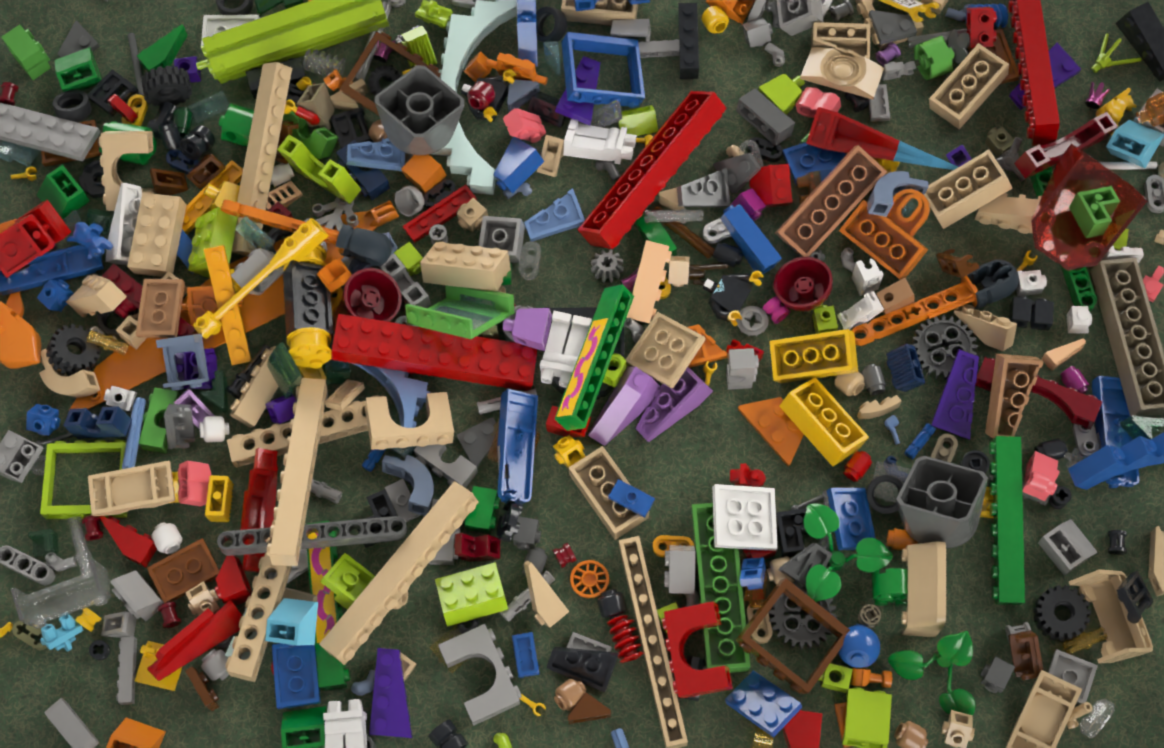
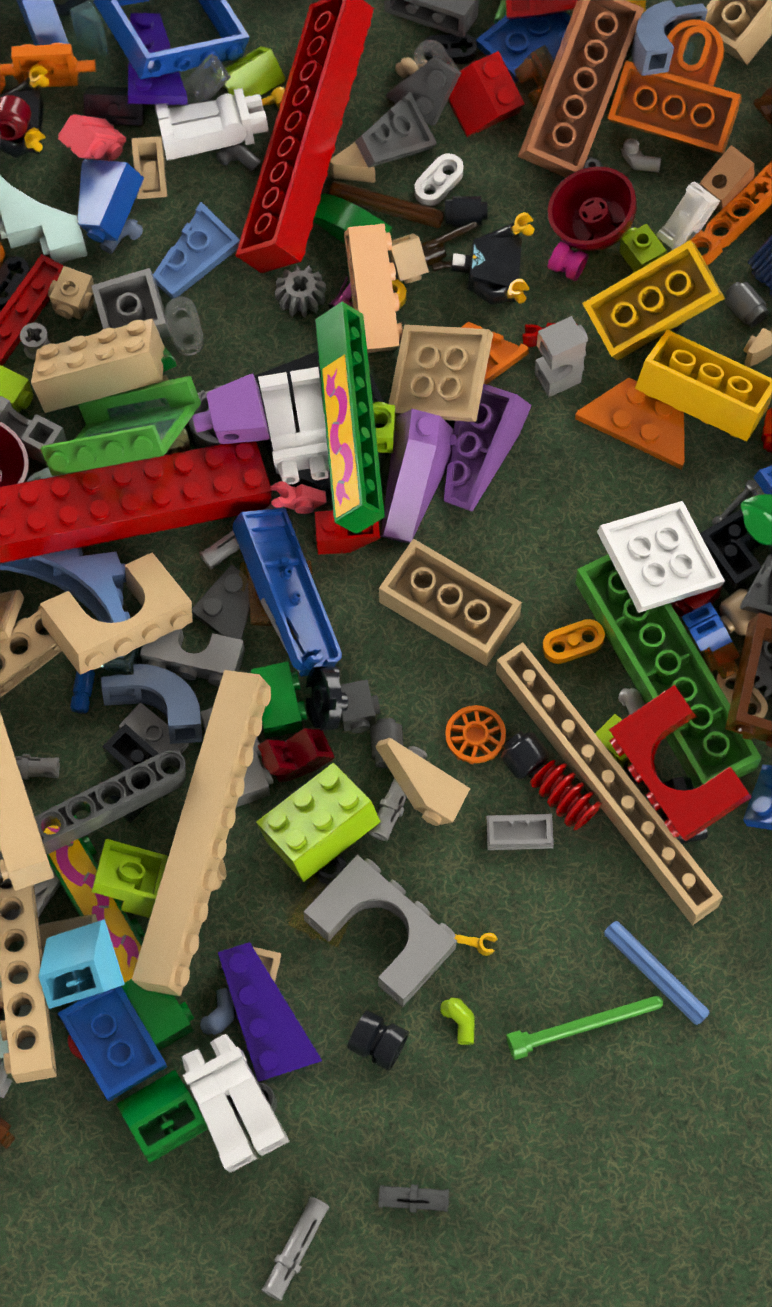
camera: 25 degrees left, 0 degrees up
(521, 92) = (64, 96): sand blue slope -> none
(525, 655) = (433, 876): blue plate -> none
(549, 393) = (300, 498): none -> coral plate
(564, 555) = (425, 715): dark red wheel -> none
(568, 451) = (366, 568): yellow brick -> none
(569, 694) = (523, 904): medium nougat head -> none
(582, 665) = (526, 855): black wing -> none
(588, 710) = (560, 913): reddish brown slope -> none
(631, 498) = (489, 593): blue plate -> none
(636, 329) = (383, 363): light grey arm -> none
(674, 215) = (376, 181): clear pin -> none
(681, 569) = (602, 664): light grey brick -> none
(708, 371) = (511, 381): yellow hand -> none
(747, 477) = (634, 502): red hips -> none
(750, 239) = (487, 174): blue slope -> none
(751, 203) = (464, 133): magenta brick -> none
(760, 317) = (550, 281): light grey gear -> none
(850, 384) = (716, 321): tan head -> none
(866, 279) = (674, 170): white hinge -> none

